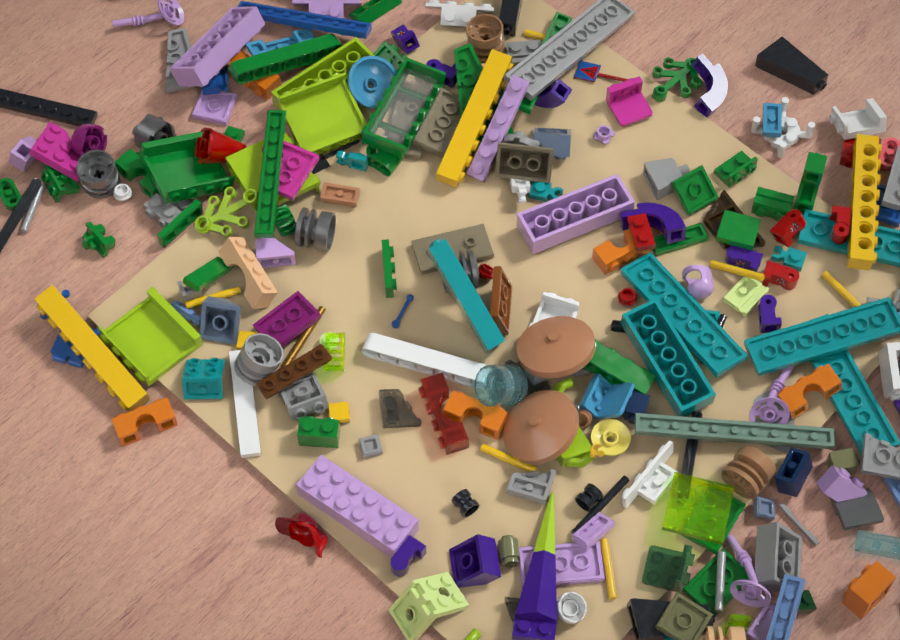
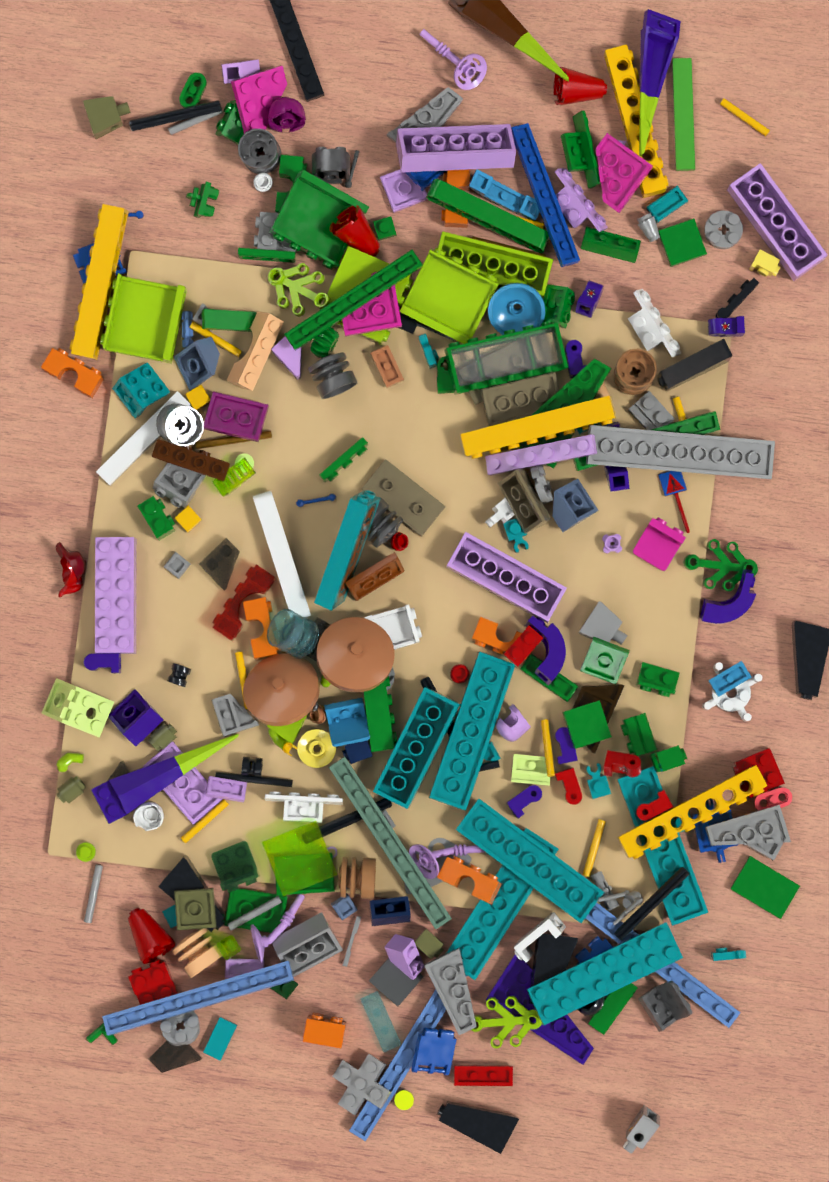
camera: 55 degrees right, 25 degrees up
(863, 121) = (786, 753): white panel -> none

